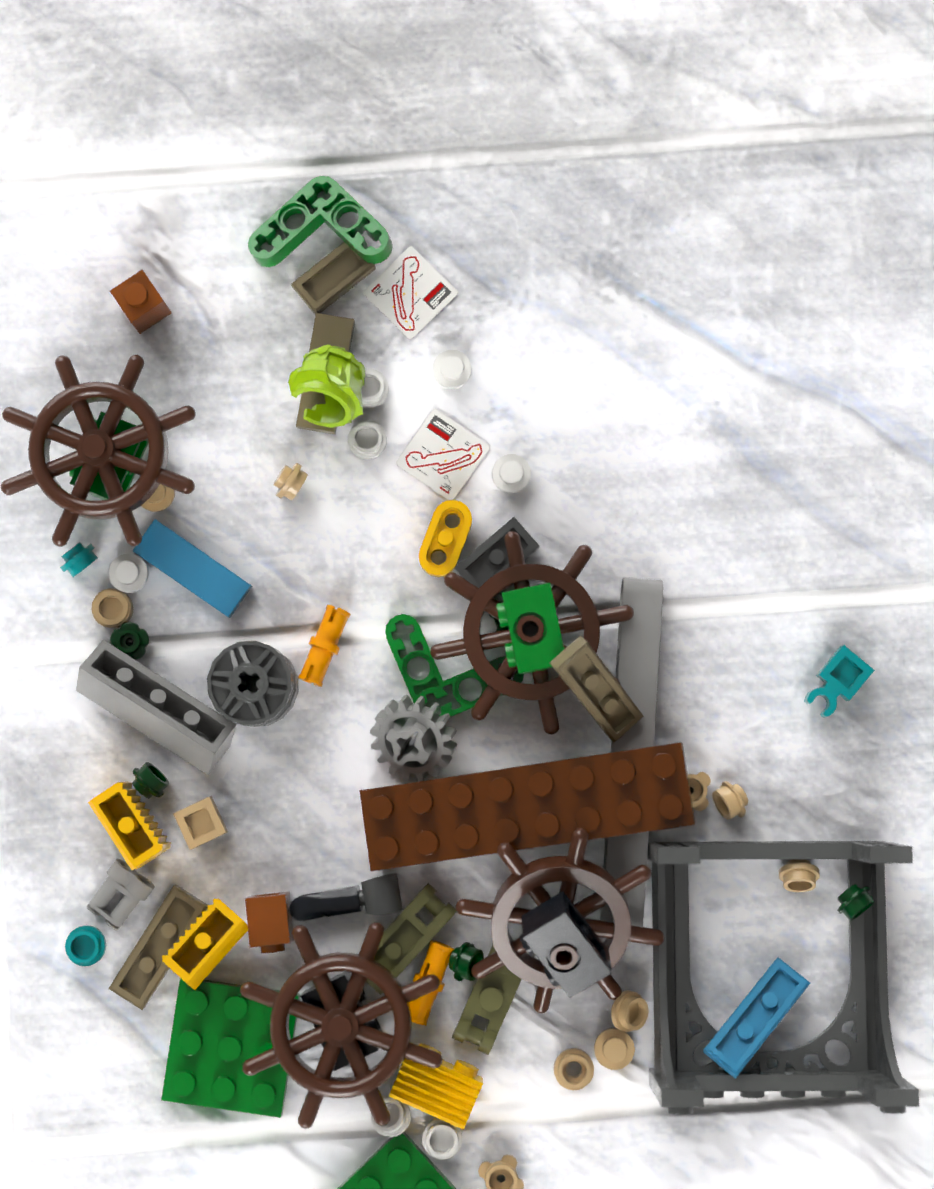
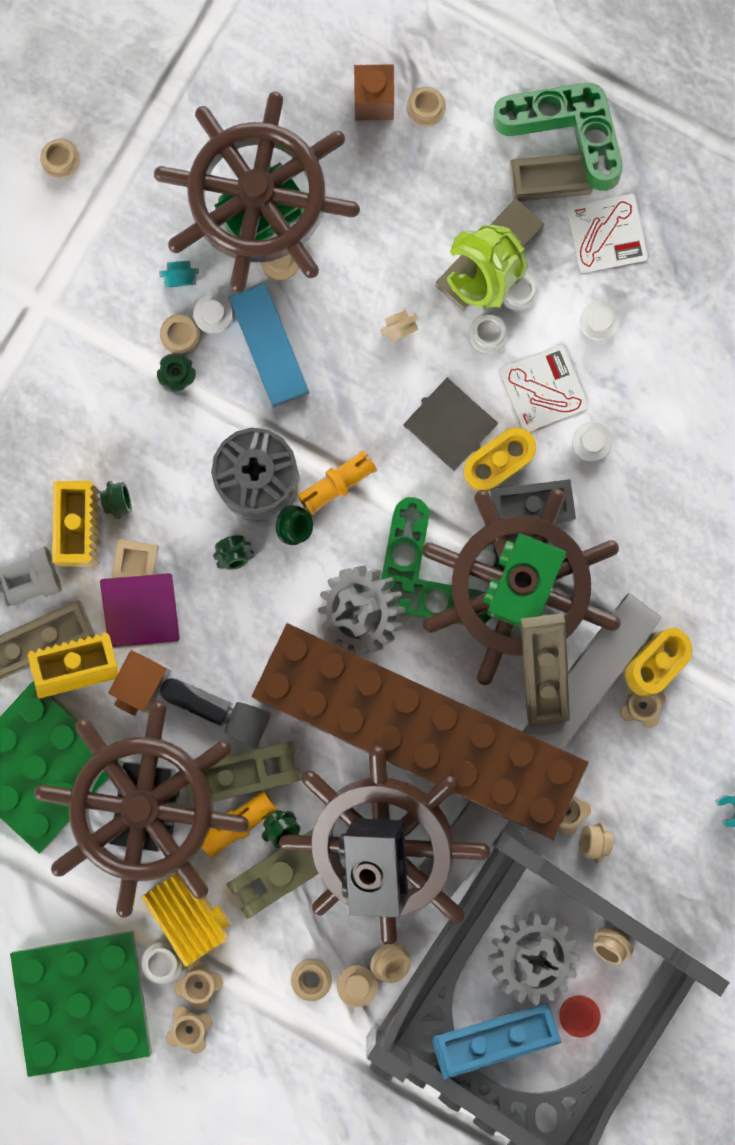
camera: 30 degrees right, 0 degrees up
(155, 707) = (161, 440): light grey brick -> none
(192, 285) = (426, 106): none -> tan plate
(230, 859) = (140, 609): none -> magenta sticker
(276, 760) = (233, 552): none -> dark green plate
(311, 704) = (293, 525): none -> dark green plate
(385, 535) = (450, 424): none -> clear smoke piece
(399, 1121) = (136, 922): white plate -> none
(490, 1146) = (199, 997): none -> tan plate
(683, 622) = (656, 664): none -> yellow plate
(704, 668) = (647, 716): none -> tan plate
(749, 943) = (531, 973): none -> light grey gear
(810, 950) = (579, 1016): none -> clear red plate
(855, 901) = (646, 999): dark green plate -> none

